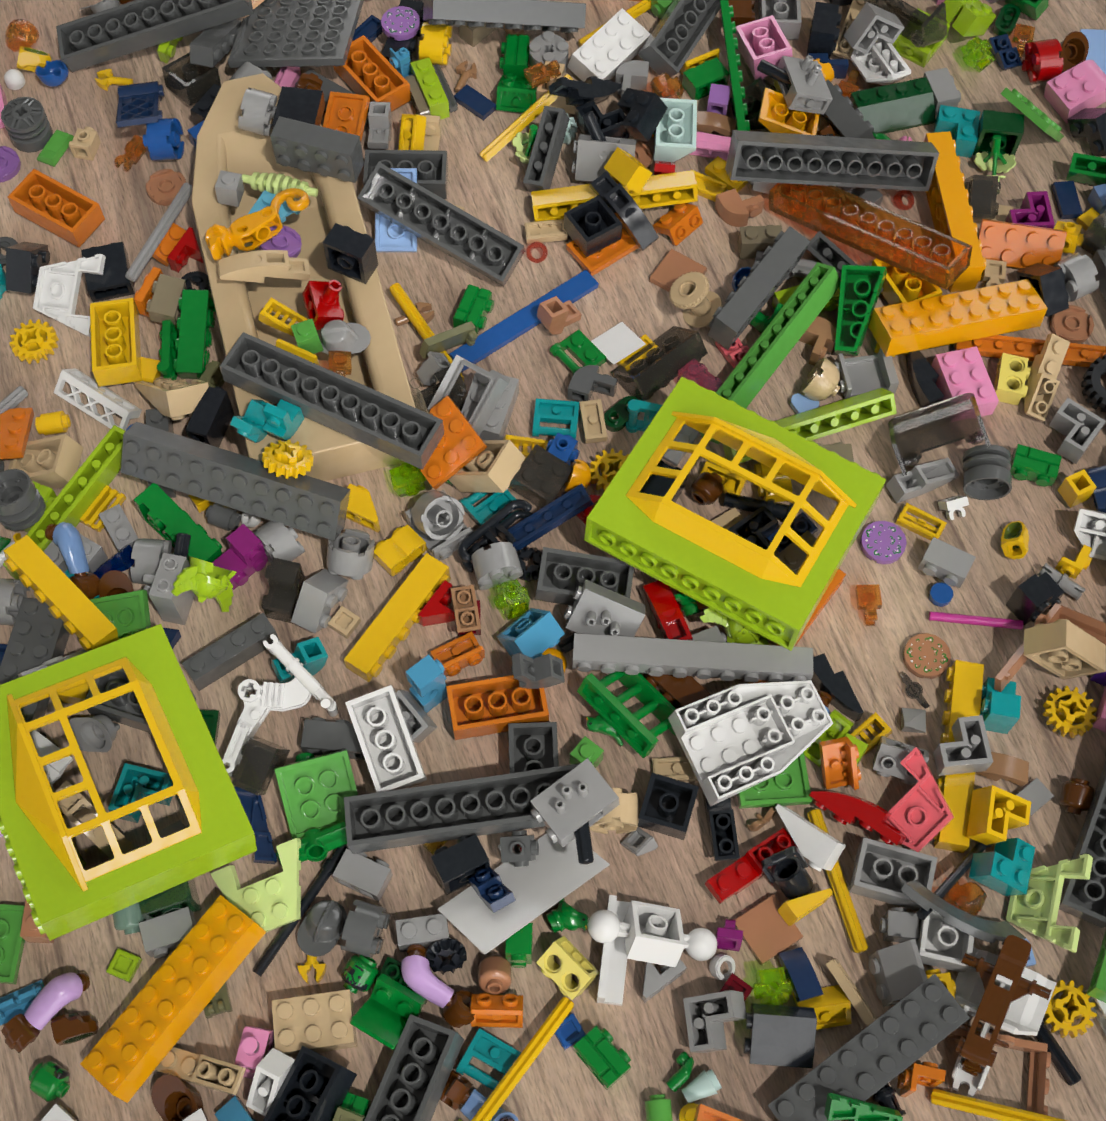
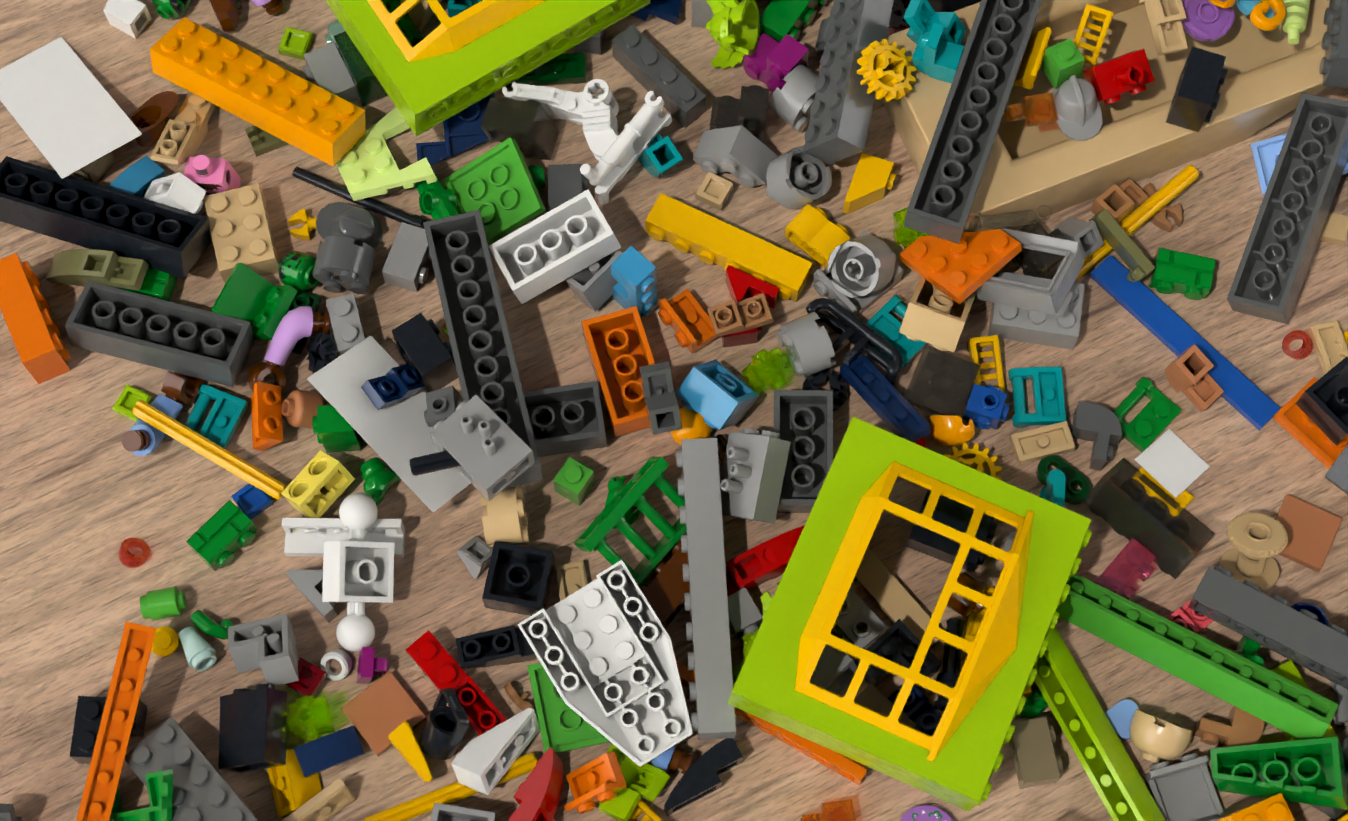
camera: 85 degrees right, 5 degrees up
(410, 337) = (1120, 200): none -> medium nougat brick

